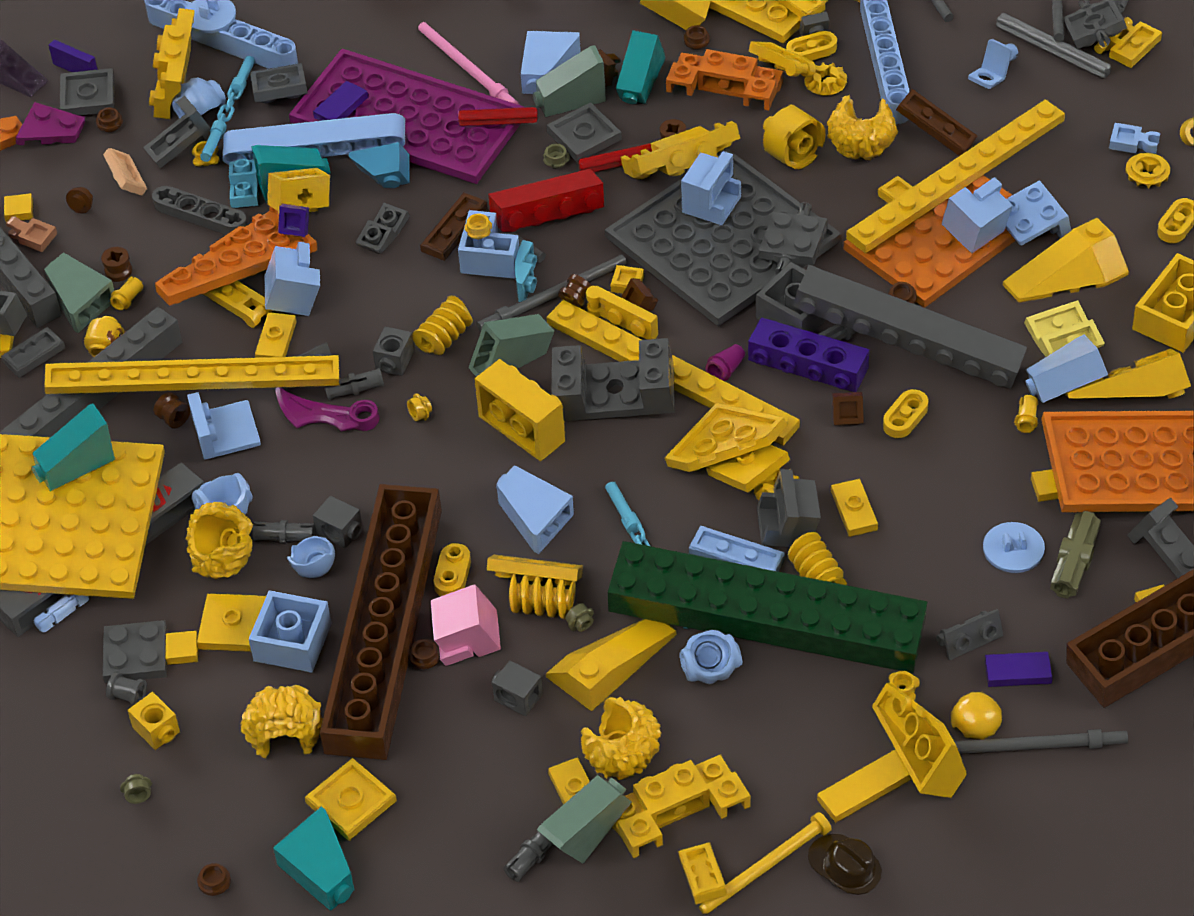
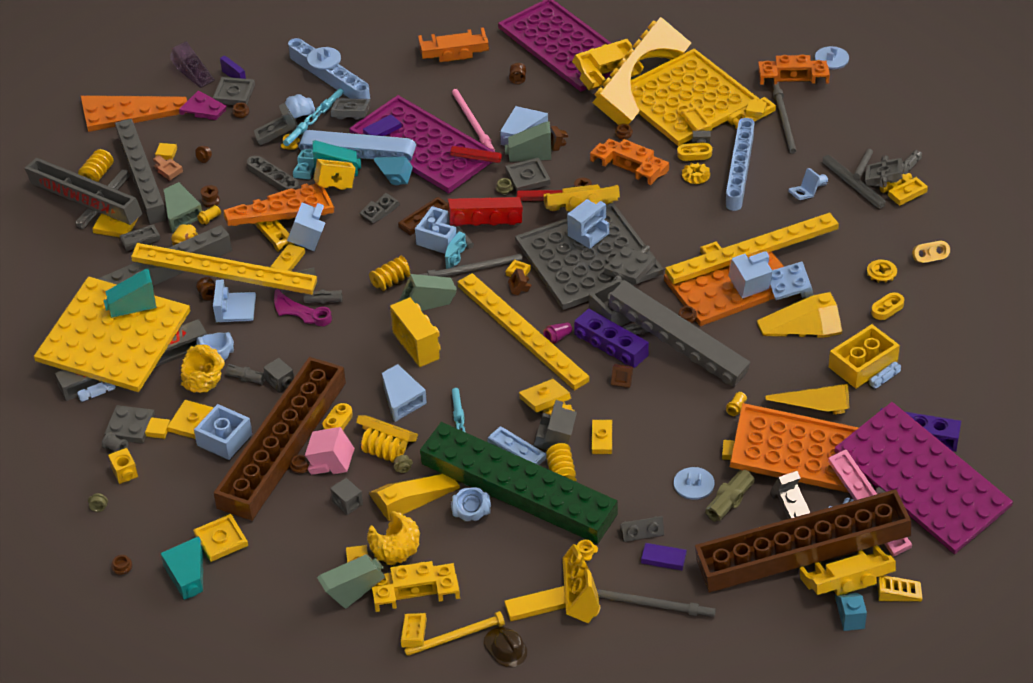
camera: 15 degrees right, 5 degrees down
(125, 171) = (237, 142): light nougat plate -> none
(171, 62) = (289, 81): yellow bracket -> none
(282, 713) = (195, 476): yellow hair -> none
(293, 220) = (323, 190): dark purple tile -> none
(312, 557) = (255, 392): light blue hair -> none
(393, 351) = (354, 282): dark grey brick -> none
(419, 407) = (357, 318): yellow plate -> none
(478, 226) = (431, 216): yellow plate -> none
(531, 852) = (316, 593): dark grey pin -> none
(575, 290) = (481, 269): reddish brown wheel -> none
(585, 387) = (460, 329): dark grey plate -> none
(621, 312) = (504, 288): yellow plate -> none
(640, 67) = (578, 142): teal slope -> none
(724, 435) = (535, 374): yellow plate -> none
(783, 59) = (671, 154): yellow plate -> none
(793, 137) = (656, 203): yellow brick -> none
(861, 137) = (701, 212): yellow hair -> none
(901, 418) = (658, 387): yellow plate -> none
(936, 122) = (753, 212): reddish brown tile -> none
(976, 715) = (624, 578): yellow hair -> none
(1061, 326) = (782, 359): light yellow slope -> none
(1066, 369) = (770, 381): light blue slope -> none
(1129, 138) = (878, 248): light blue plate -> none

